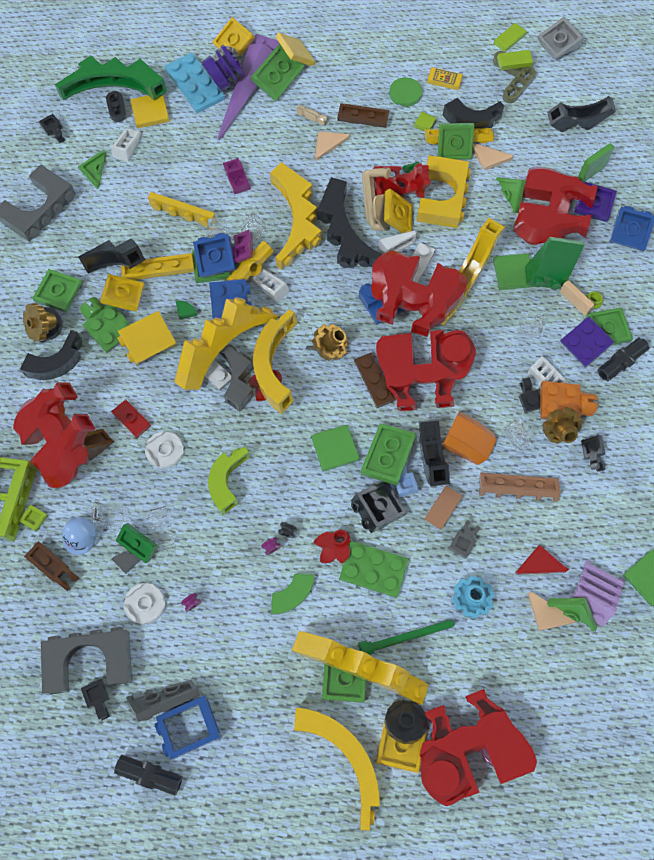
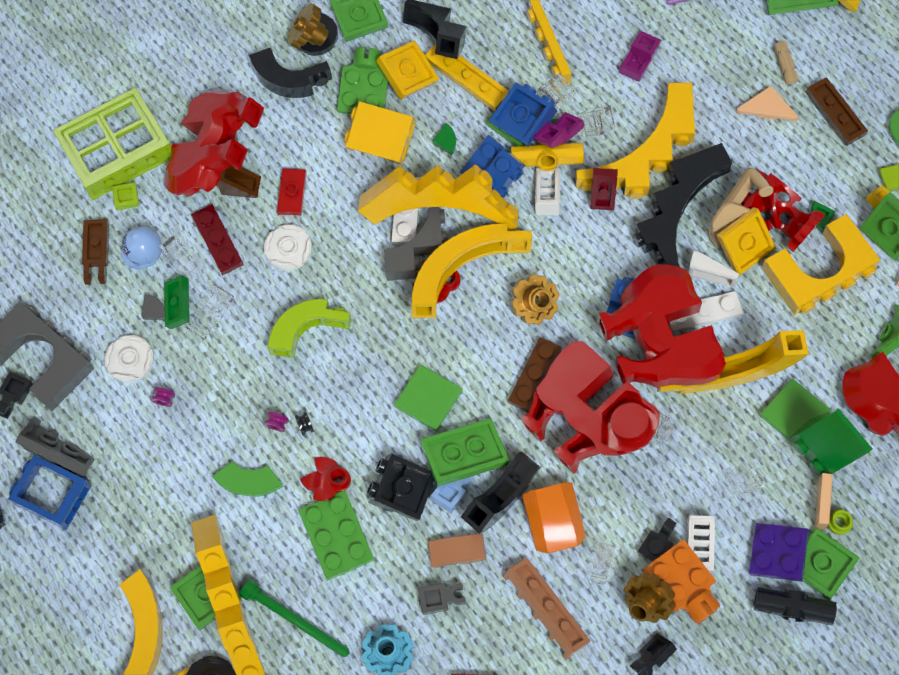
camera: 55 degrees right, 0 degrees up
(118, 486) = (217, 239): none -> dark red plate
(300, 253) = (603, 189): none -> dark red plate

